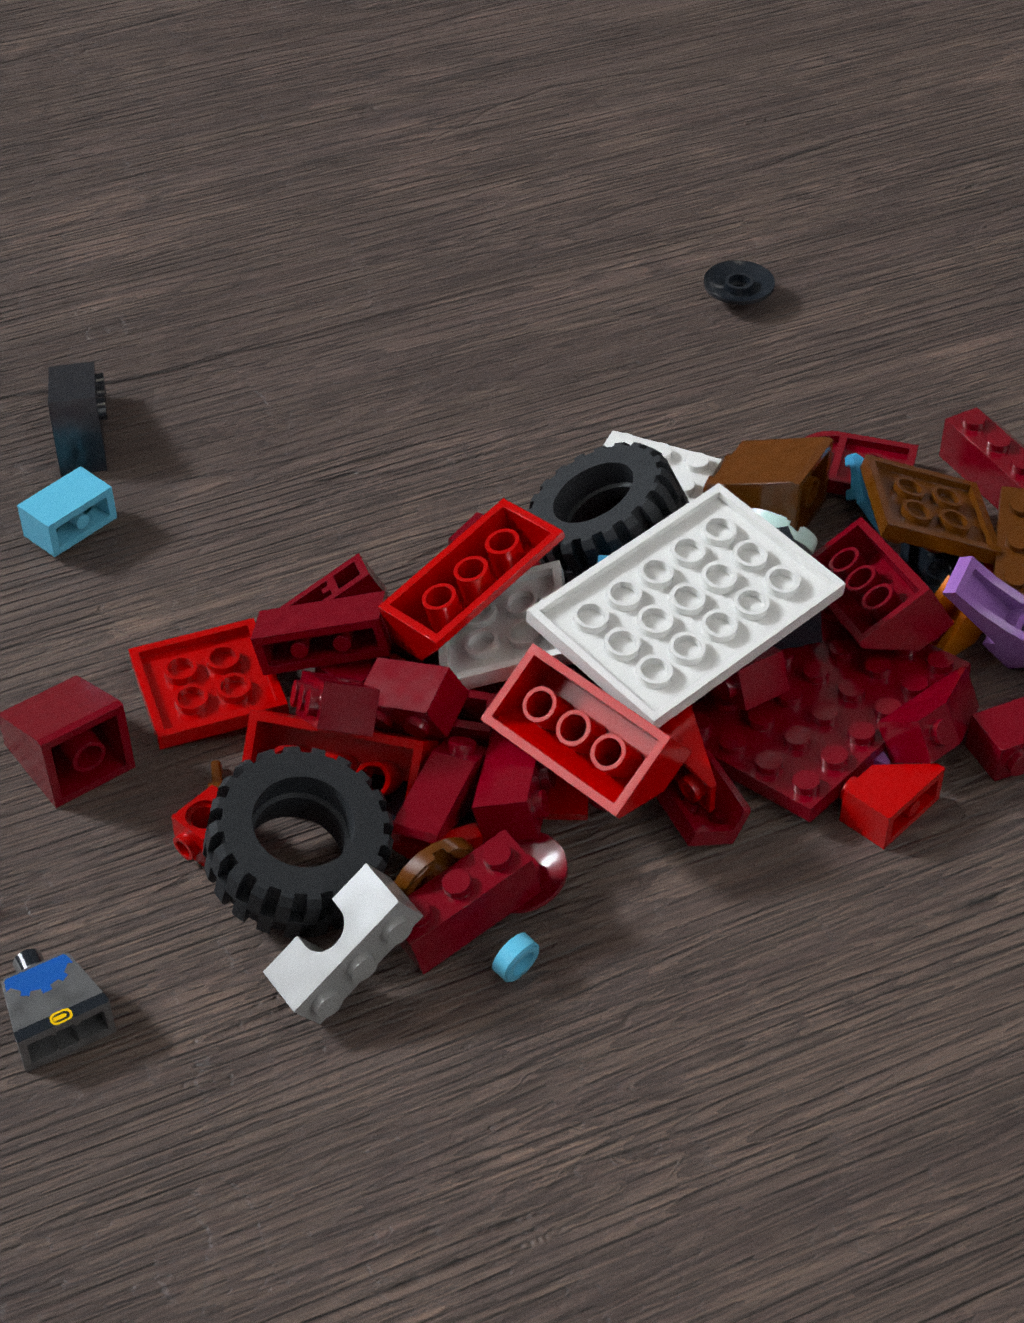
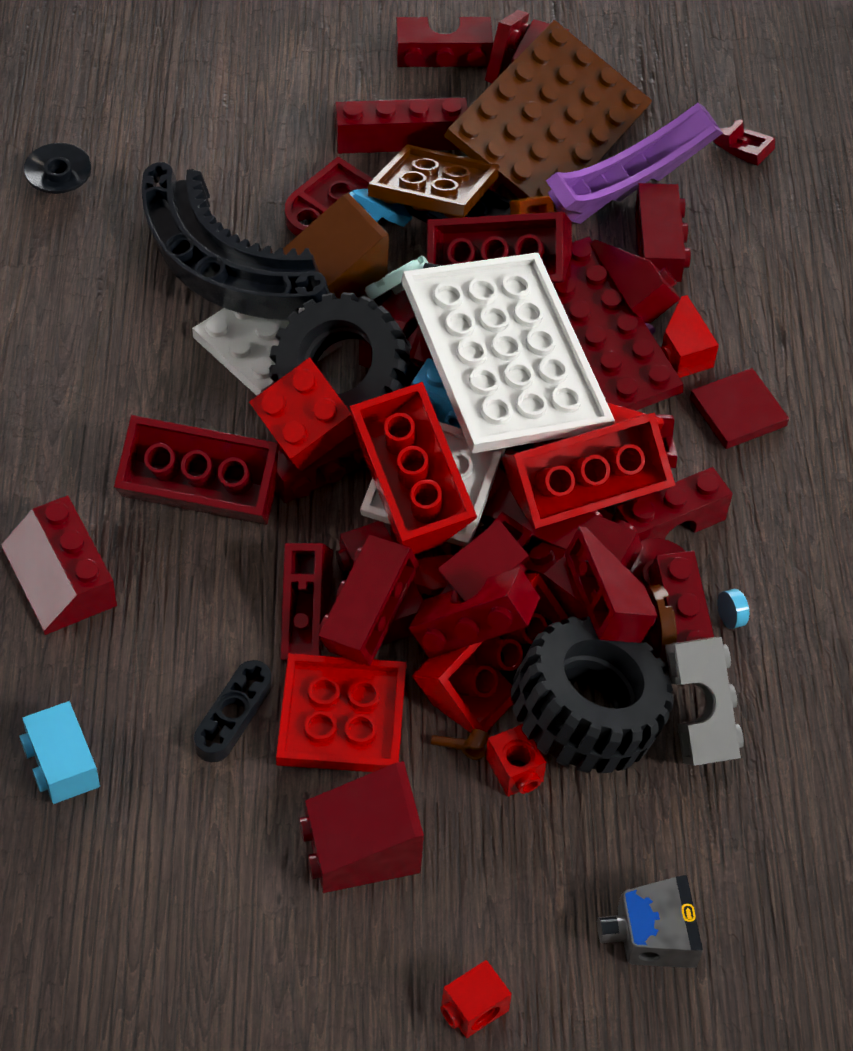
camera: 70 degrees left, 10 degrees up
(148, 600) = (233, 727): none -> black beam
(280, 449) = (59, 566): none -> dark red slope
(400, 799) = (610, 592): none -> dark red slope
(418, 479) = (198, 469): none -> dark red slope
(524, 480) = (304, 414): none -> red brick
(647, 872) = (697, 499): none -> dark red arch
(704, 389) = (217, 262): none -> black gear
(831, 886) = (739, 408): none -> dark red tile

